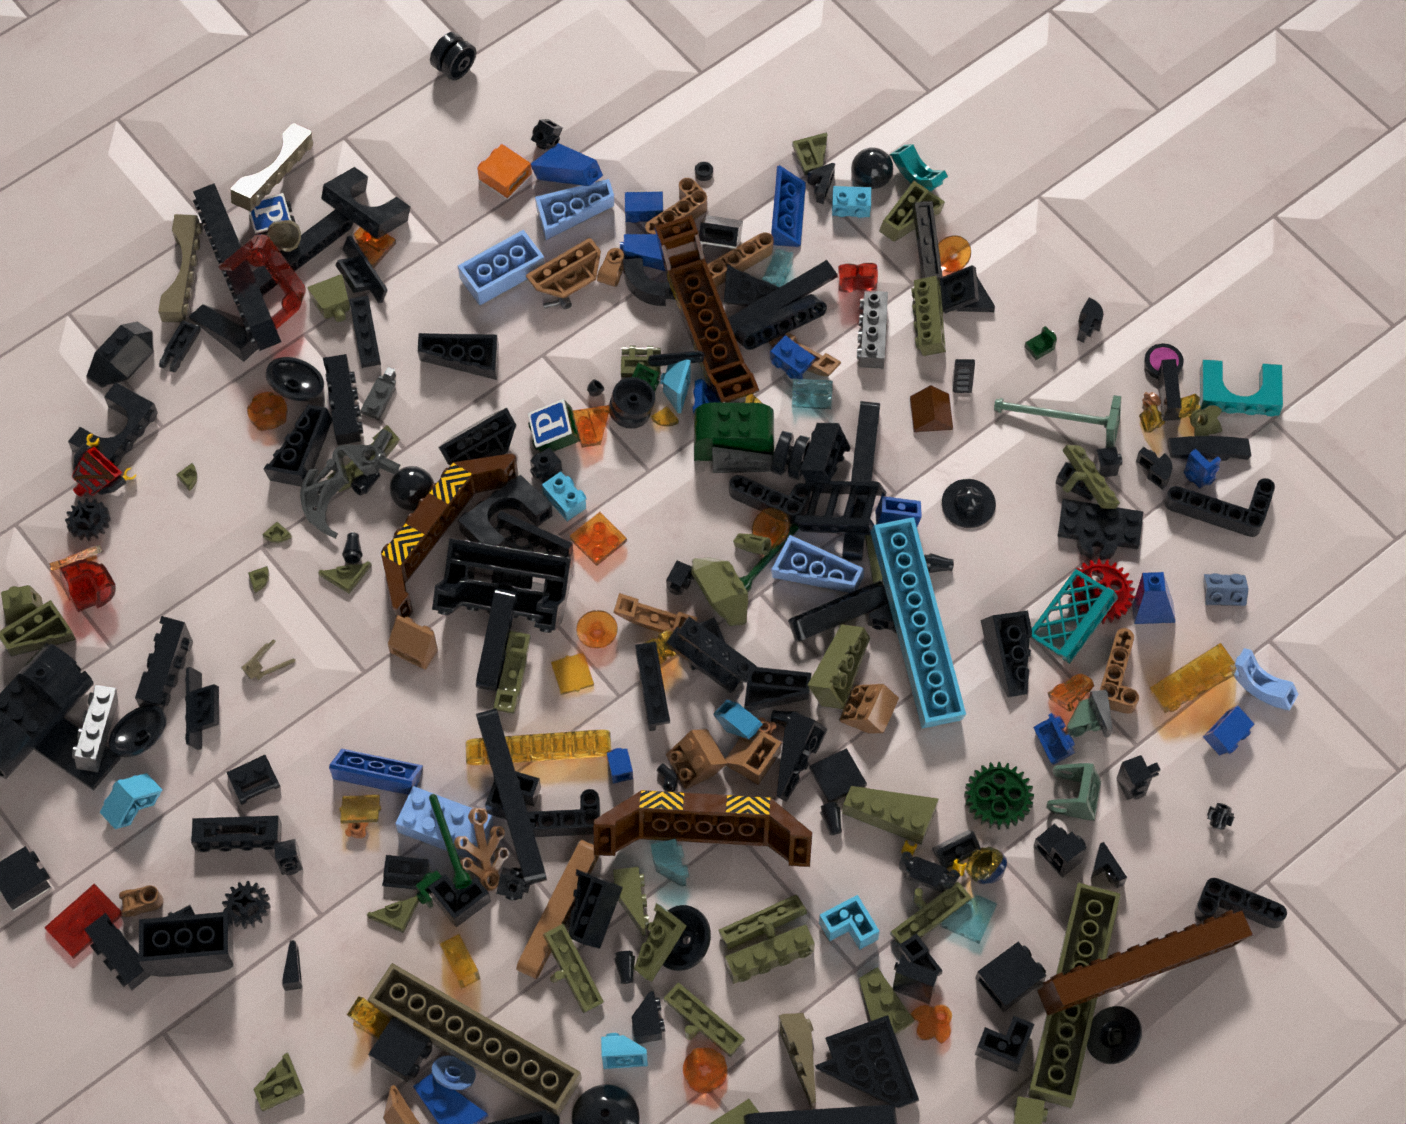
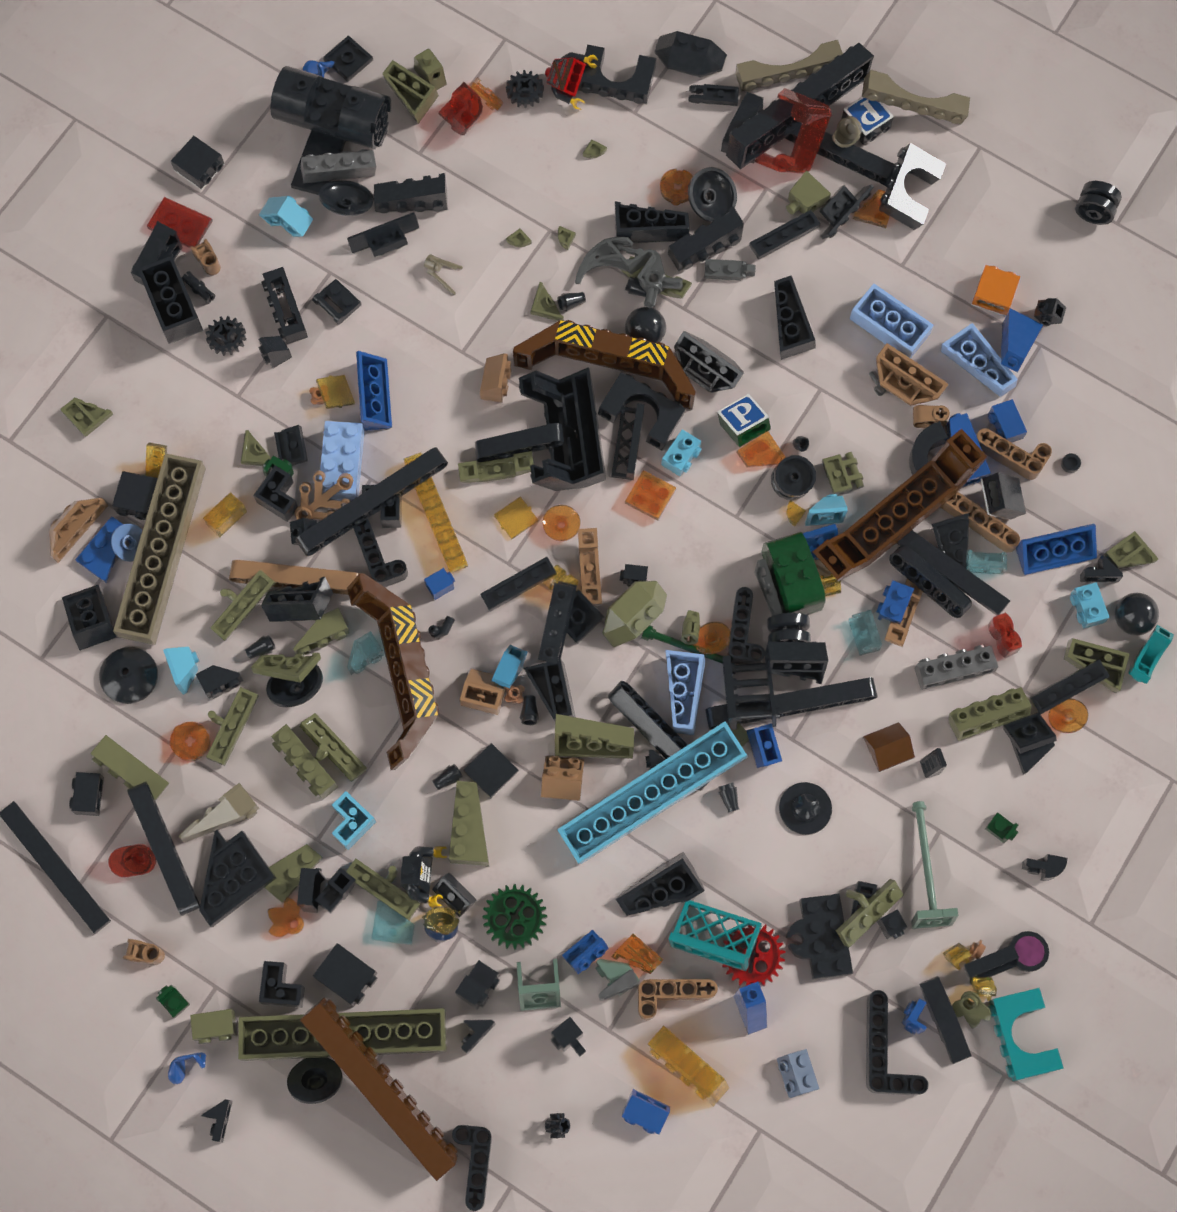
camera: 70 degrees right, 10 degrees up
(292, 972) = (183, 390): black slope -> none
(461, 878) = (288, 486): dark green piece -> none
(545, 465) = (704, 427): black brick -> none
(647, 374) = (824, 481): dark green bracket -> none
(671, 358) = (849, 499): black axle -> none
(696, 758) = (466, 644): medium nougat slope -> none
(800, 739) = (505, 725): black wedge -> none
(1159, 468) = (904, 978): black brick -> none
(1261, 684) = (706, 1134): light blue arch -> none

